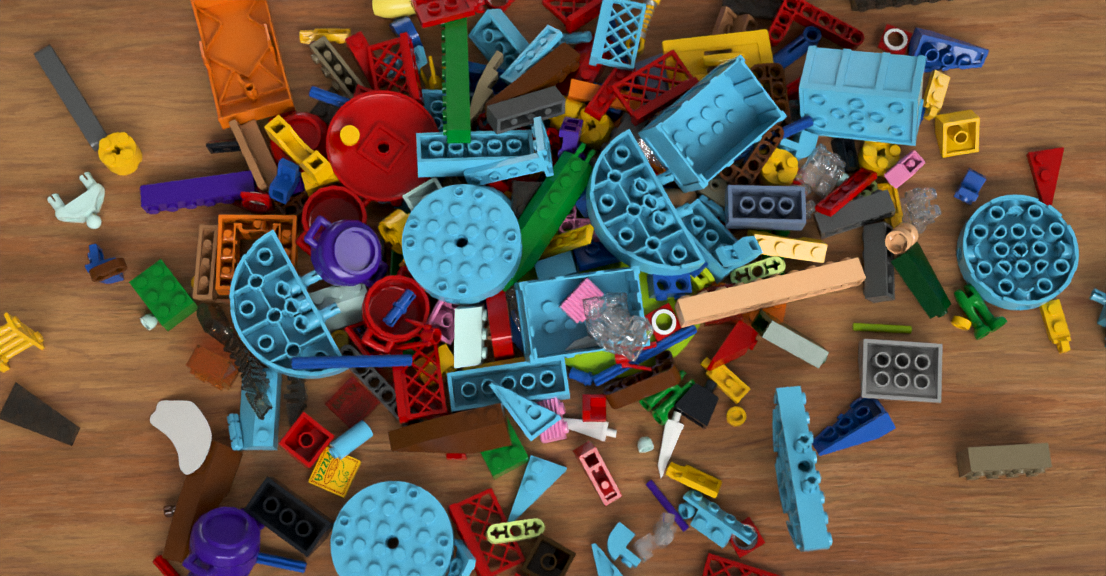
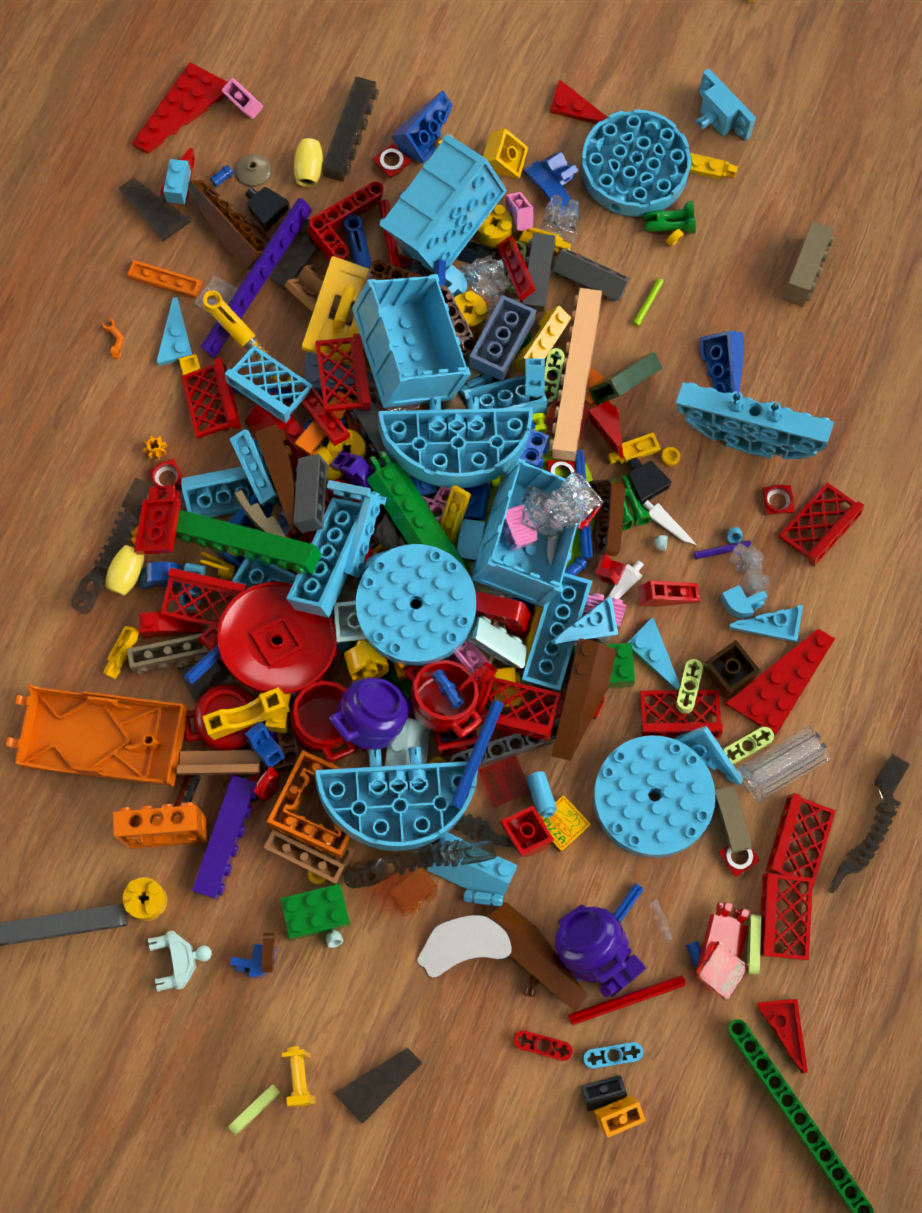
camera: 65 degrees left, 0 degrees up
(132, 547) = (540, 1037): none -> red beam
(177, 131) = (160, 826): none -> orange brick
(289, 516) = (589, 878): black slope -> none
(349, 135) = (255, 661): yellow tile -> none
(577, 37) = (249, 421): medium azure axle -> none
(695, 479) = (711, 515): yellow hinge -> none
(715, 522) = (757, 515): medium azure bracket -> none
(900, 370) = (695, 305): light grey slope -> none
(901, 238) = (582, 244): light nougat wheel -> none
(922, 281) = (623, 248): dark green slope -> none
(949, 186) = (546, 181): none -> blue slope

